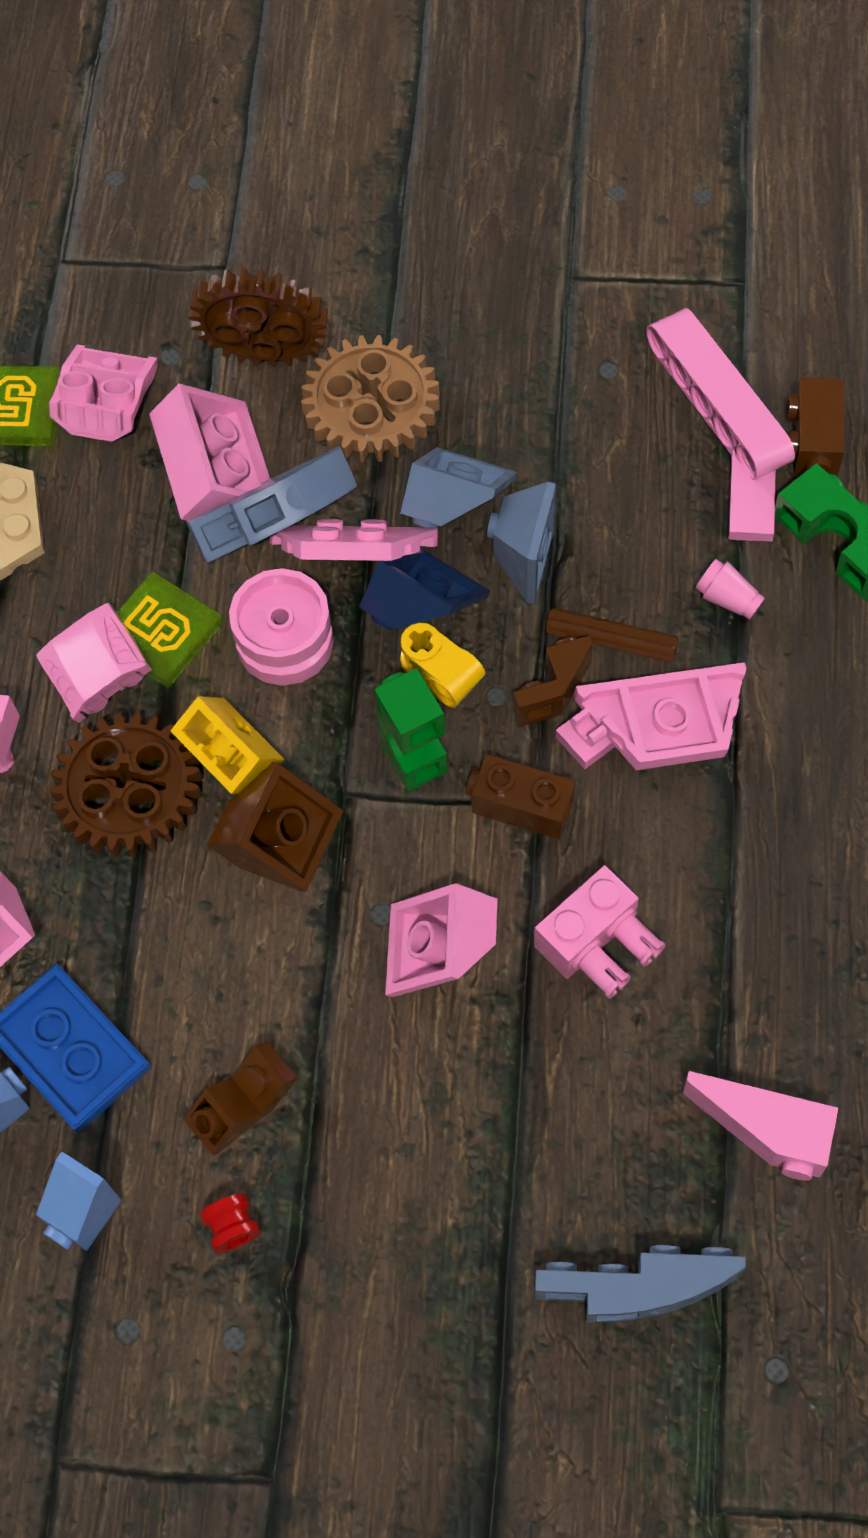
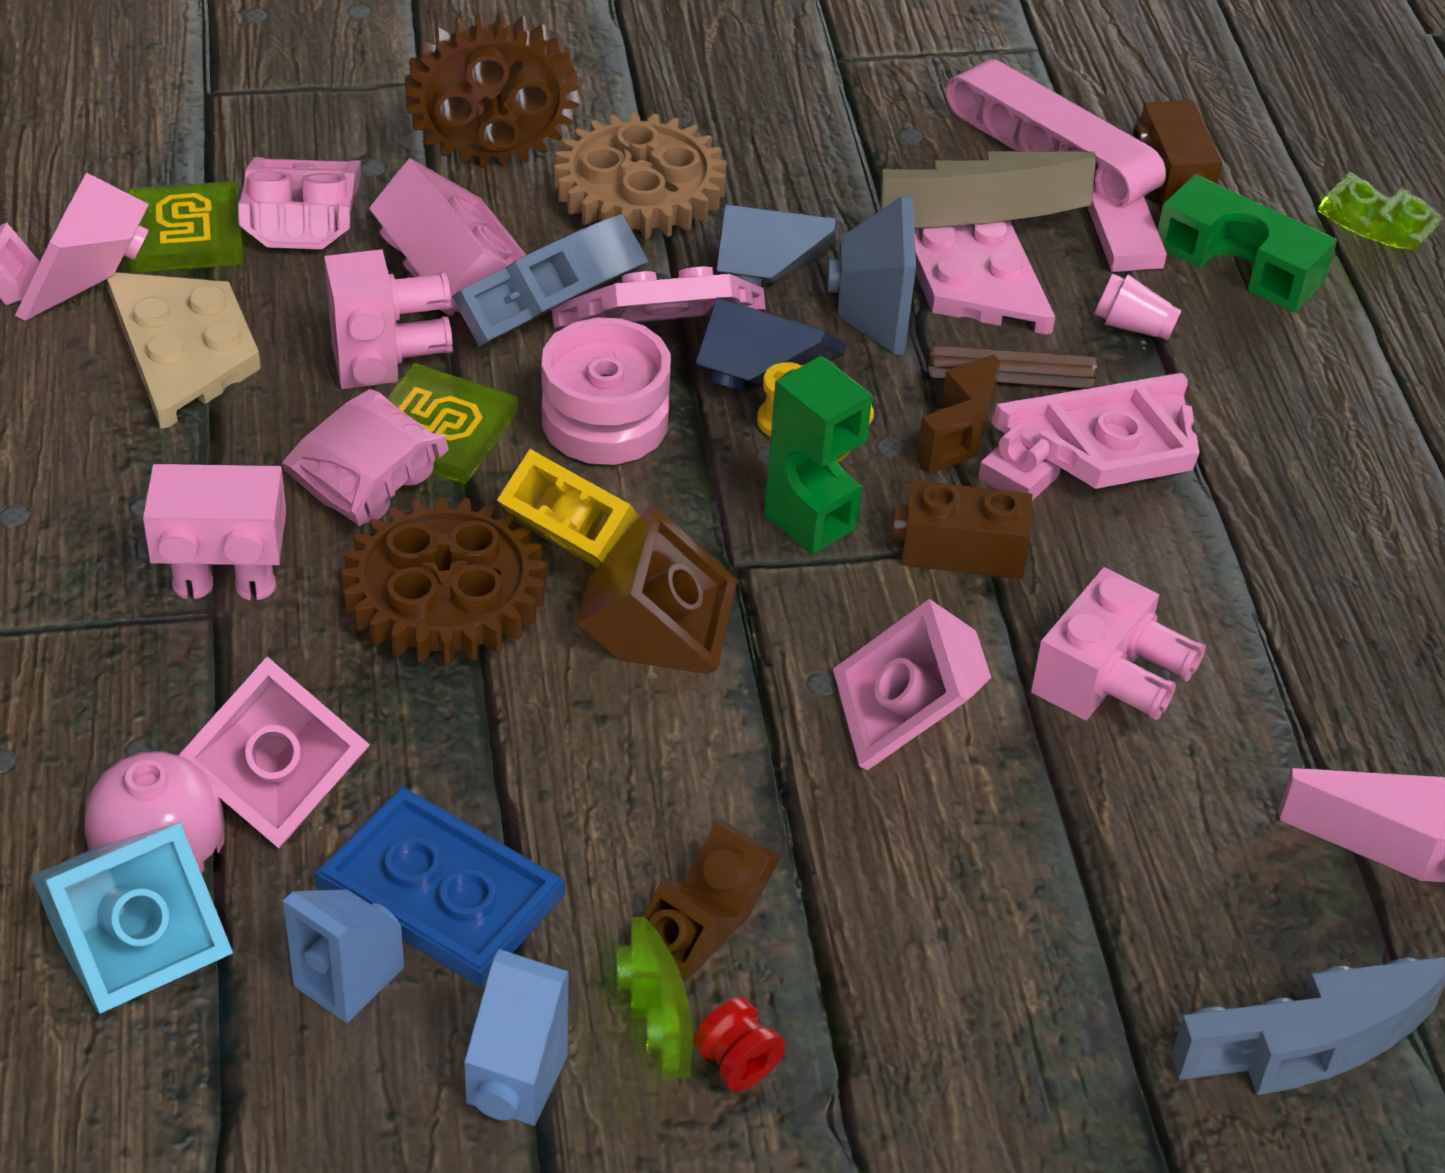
camera: 20 degrees left, 20 degrees down
(125, 541) = (365, 313): none -> bright pink brick
(183, 1162) = (658, 997): none -> clear neon green slope
(616, 520) = (980, 274): none -> bright pink wing
(626, 462) = (993, 189): none -> dark tan slope

